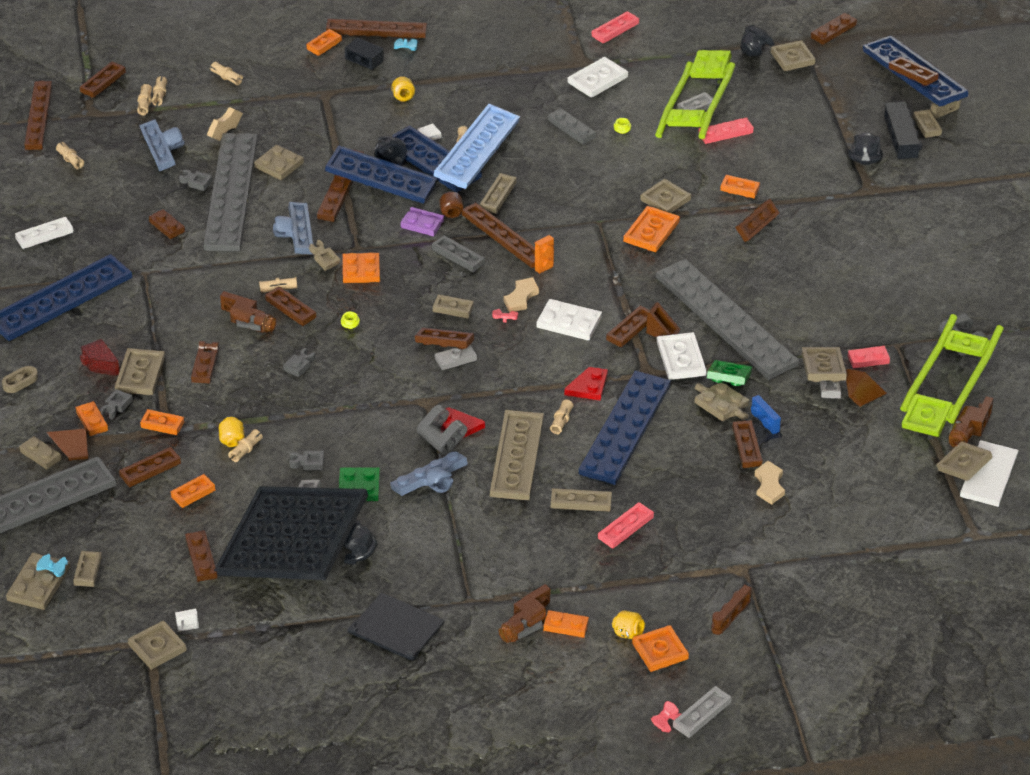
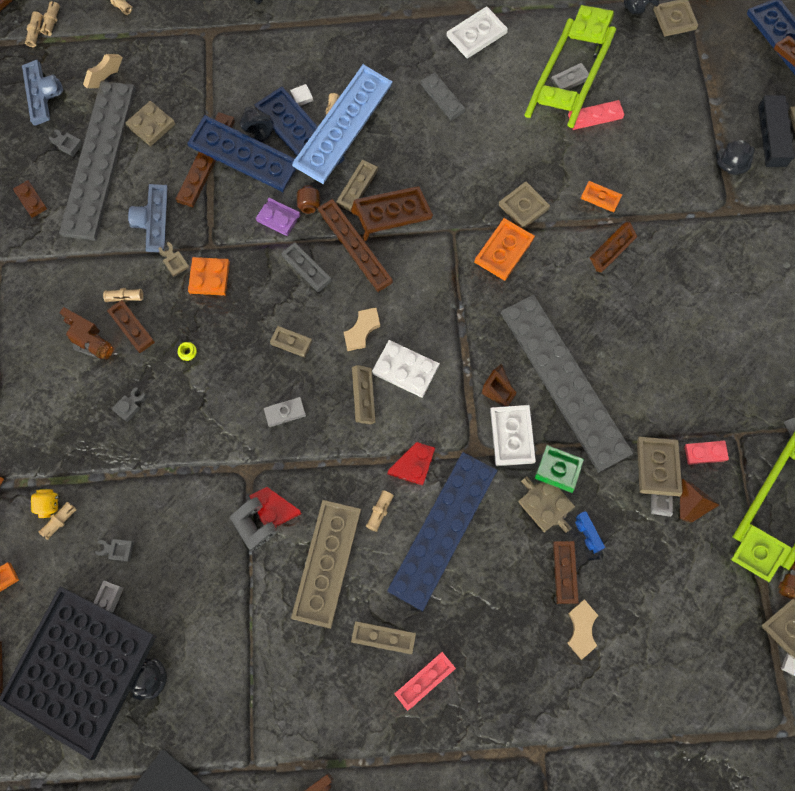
camera: 10 degrees right, 30 degrees up
(205, 362) = (37, 395): reddish brown plate -> none
(361, 479) = (162, 586): green plate -> none
(403, 89) = (283, 35): yellow head -> none
(434, 475) = (235, 584): sand blue plate -> none
(444, 338) = (275, 389): reddish brown plate -> none
(498, 314) = (334, 357): coral piece -> none
(531, 337) = (363, 394): none -> dark tan plate
(534, 204) = (391, 210): none -> reddish brown plate
(544, 254) = (390, 283): orange plate -> none
(622, 125) = (493, 97): neon yellow plate -> none
(628, 327) = (465, 387): reddish brown plate -> none

